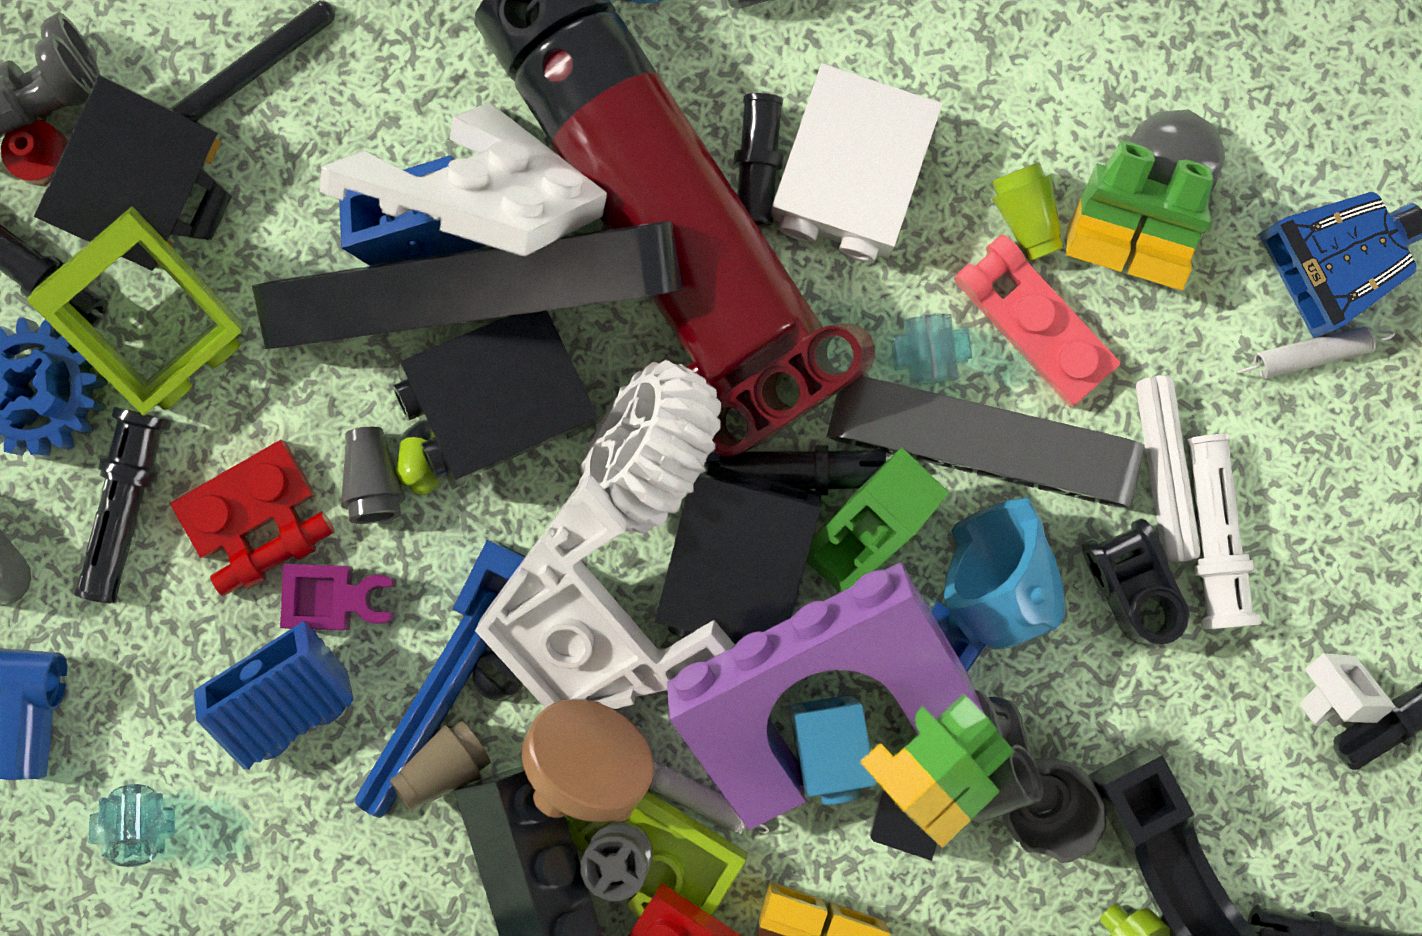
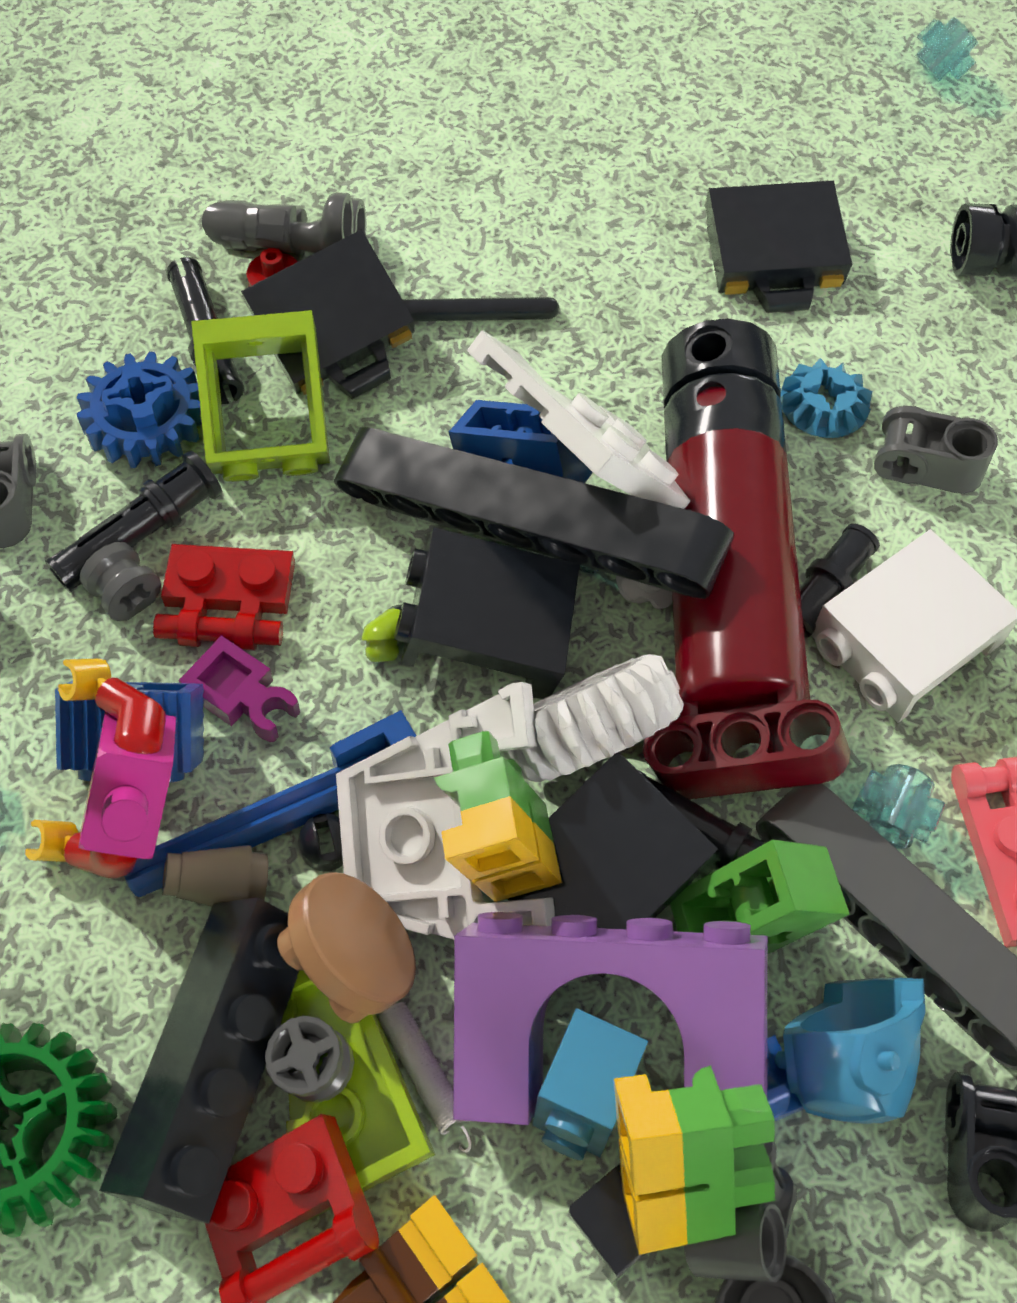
camera: 30 degrees right, 25 degrees down
(155, 570) = (120, 581): none -> dark grey wheel
(316, 752) = (126, 780): none -> torso
(369, 478) = (337, 623): dark grey cone -> none
(639, 600) = (504, 826): none -> yellow hips

